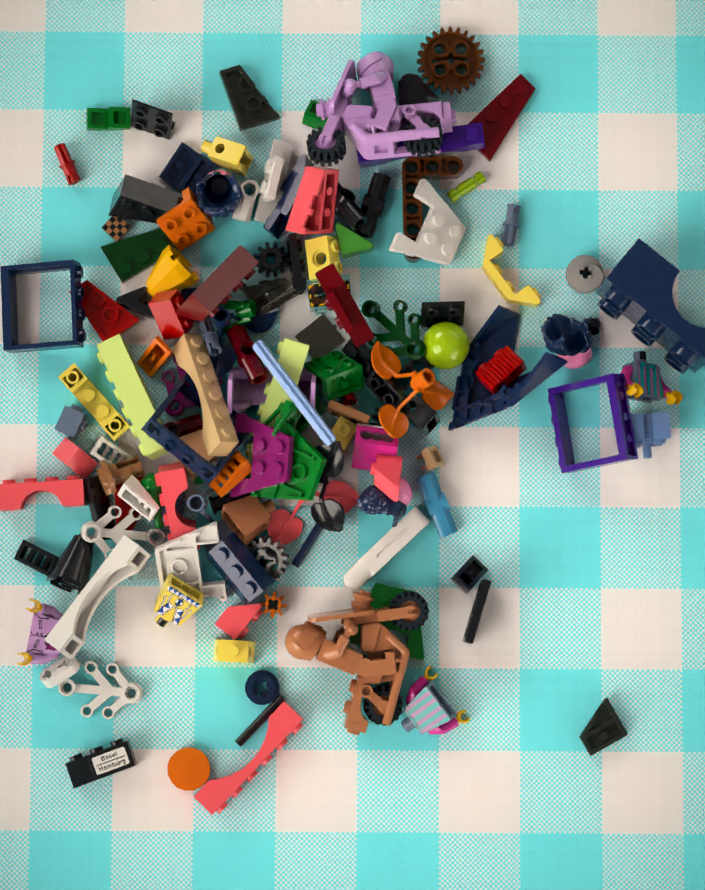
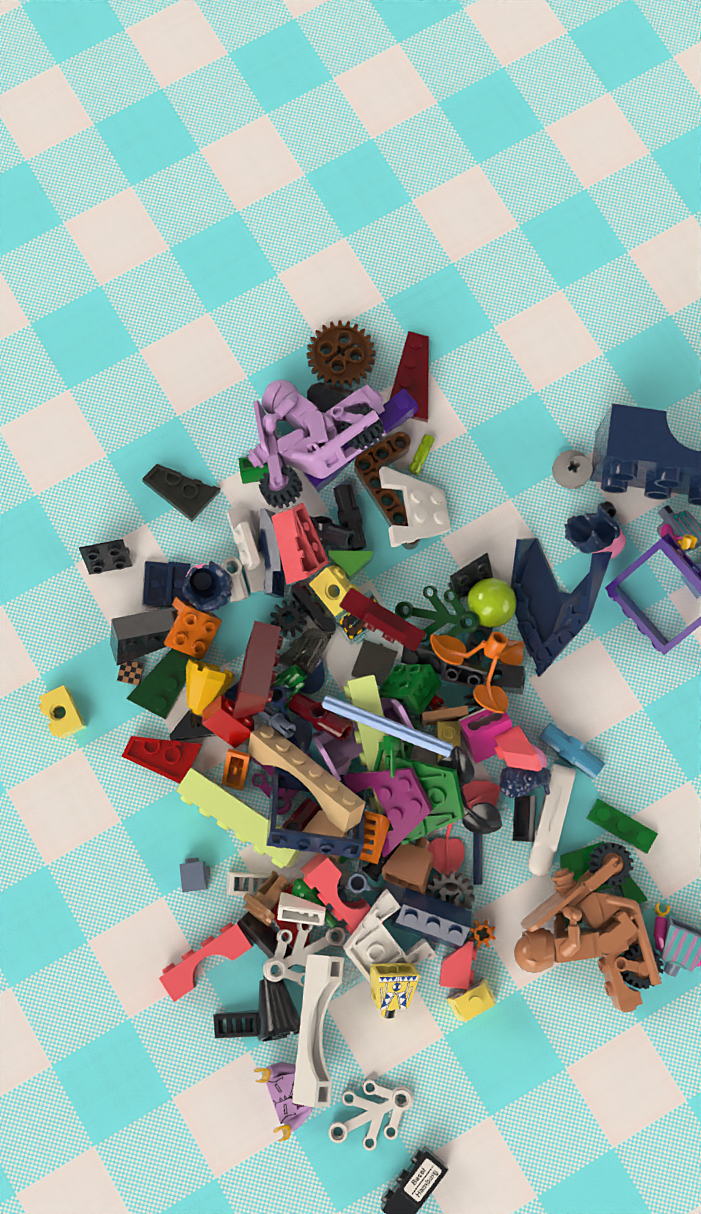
camera: 30 degrees left, 5 degrees down
(9, 305) = (73, 801): dark blue window -> none
(46, 239) = (71, 722): none -> light yellow brick
(59, 671) = (321, 1123): white beam -> none
(67, 164) = (51, 641): red axle -> none
(75, 458) = (217, 907): coral slope -> none
(94, 401) = (205, 844): light yellow slope -> none
(108, 119) = (66, 580): green slope -> none
(189, 769) = (498, 1139): orange tile -> none
(217, 791) = (539, 1141): coral arch -> none
(228, 155) = (194, 547): light yellow torso -> none
(252, 691) = (527, 1024): dark blue gear -> none
(253, 727) = (535, 1049): black bar -> none
(364, 535) = (524, 818): none -> black tile
(432, 458) = (541, 711): tan tile -> none
(440, 589) = (622, 826): none -> green plate
(469, 574) = (639, 797): black slope -> none
(476, 611) = (670, 827): black tile -> none
(500, 370) = (553, 596): red brick -> none
(510, 225) = (481, 464): sand blue axle -> none
(526, 297) = (535, 517): light yellow slope -> none

